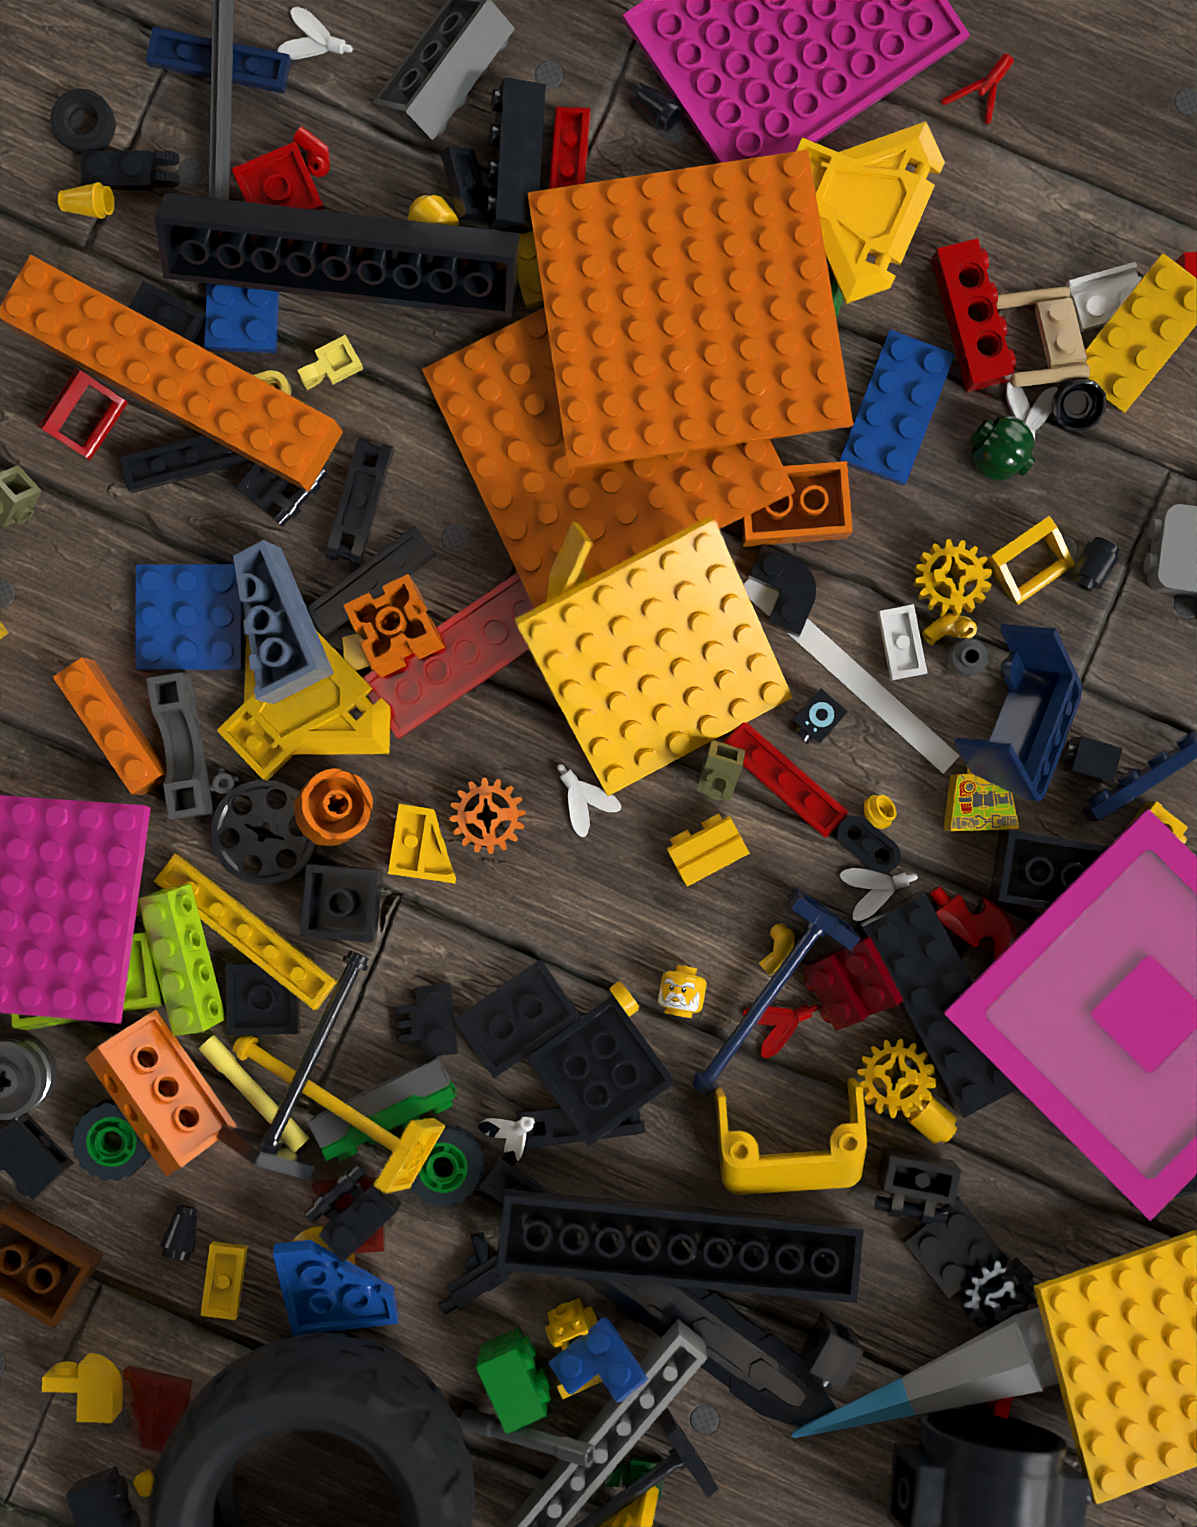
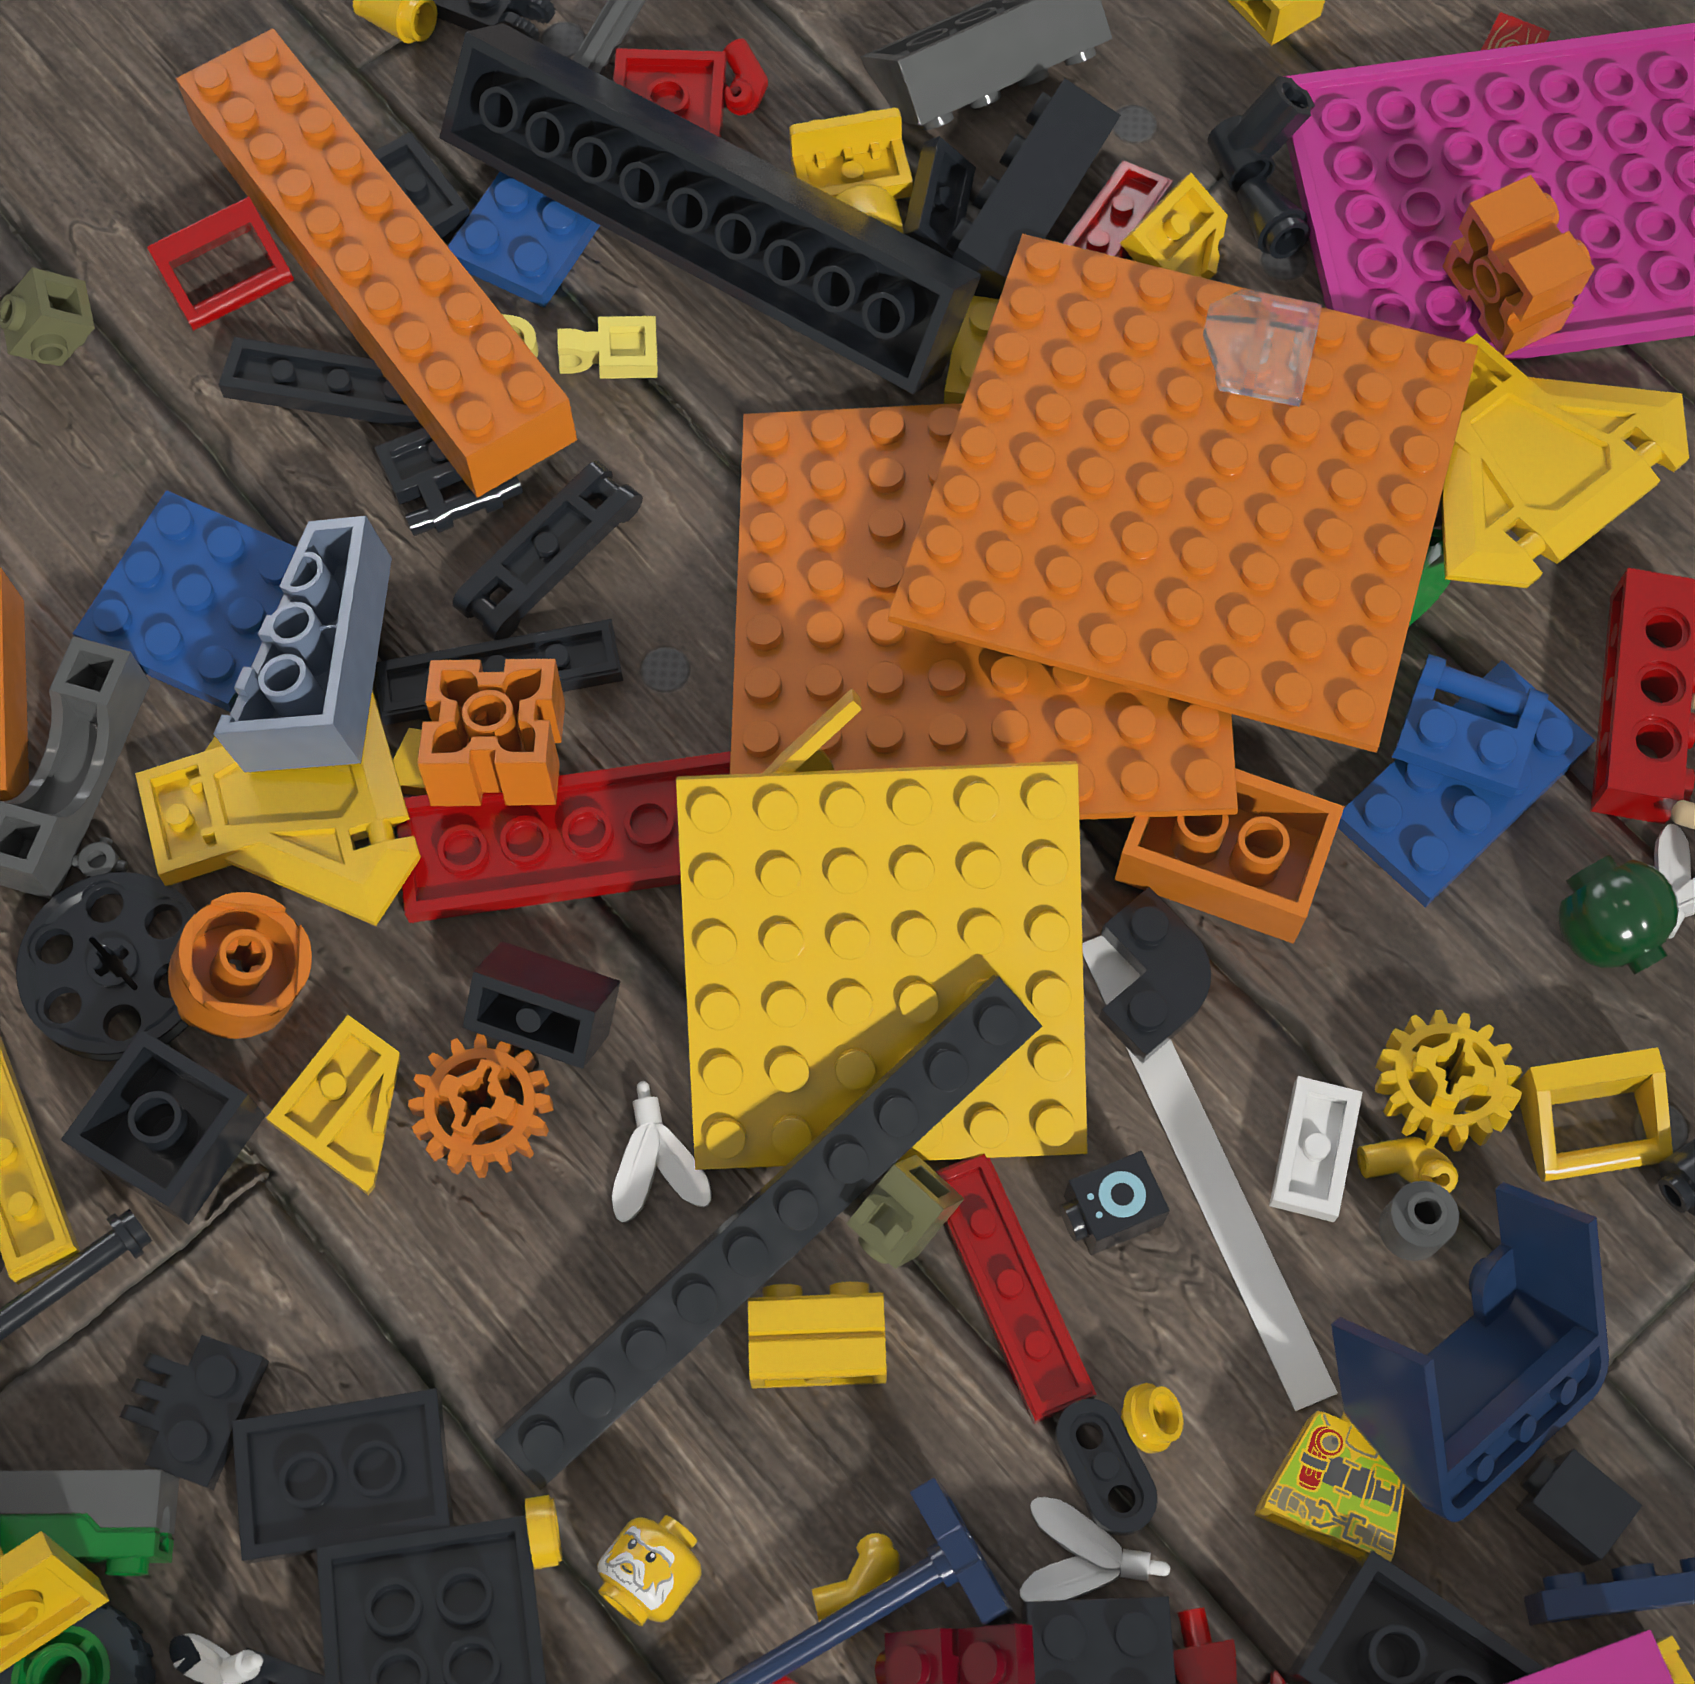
camera: 25 degrees right, 20 degrees down
(403, 180) = (852, 153): none -> yellow bracket
(492, 753) = (541, 1004): none -> black brick
(610, 145) = (1180, 231): none -> yellow wing
(624, 62) = (1249, 141): none -> black piece
(664, 810) = (766, 1232): none -> black plate
(694, 207) = (1262, 344): none -> clear slope
(811, 89) = (1517, 265): none -> orange brick
(890, 391) = (1464, 743): none -> blue plate

